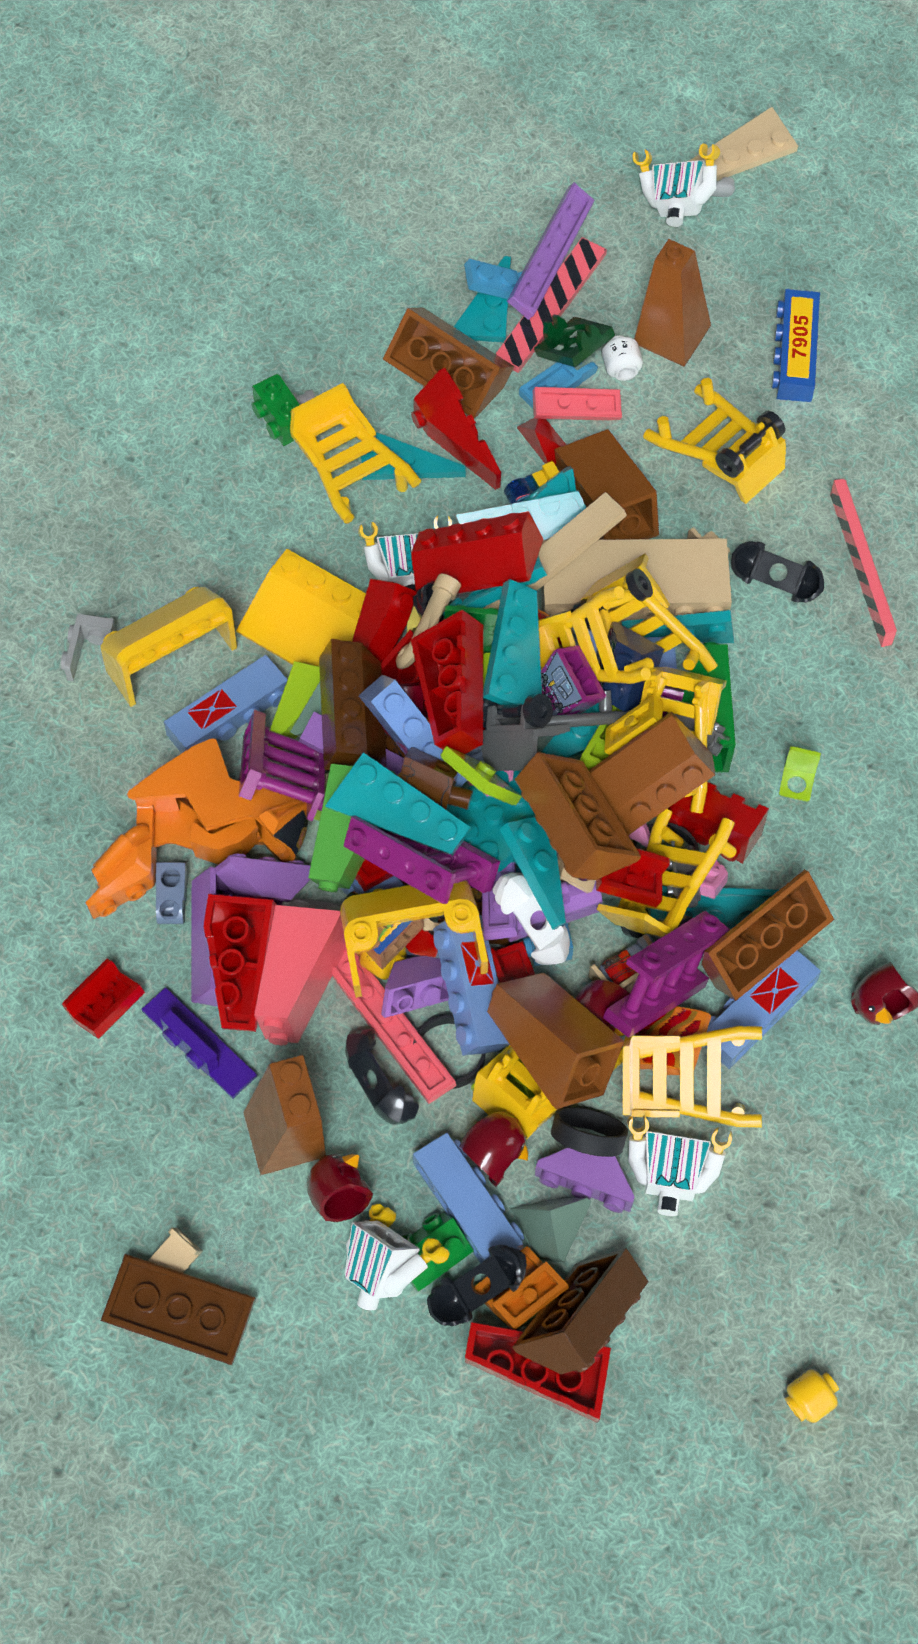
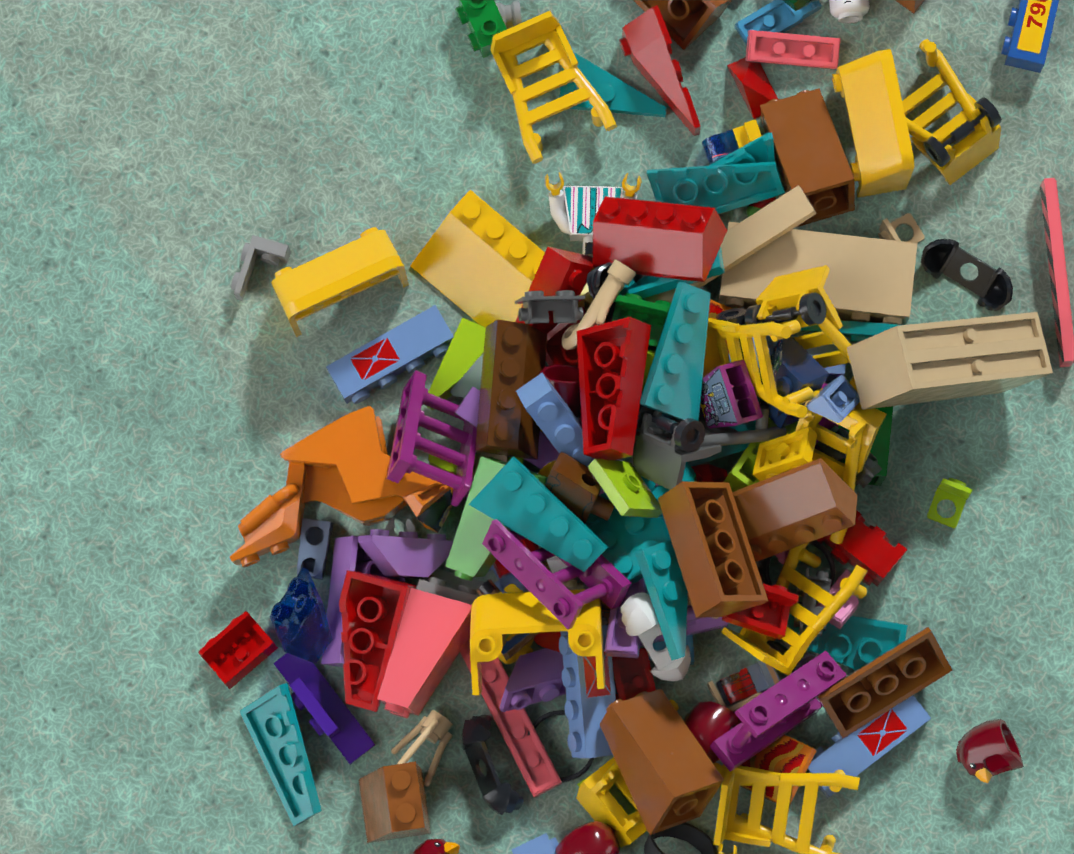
camera: 15 degrees right, 15 degrees up
(158, 1086) = (280, 744): none -> teal wing
(168, 957) = (302, 619): none -> clear blue slope
(316, 1051) = (432, 728): none -> tan plant
(367, 624) = (537, 305): none -> dark grey hinge
(672, 446) = (877, 123): none -> yellow windscreen
(674, 664) = (835, 400): none -> medium blue slope
(777, 627) = (949, 360): none -> tan brick

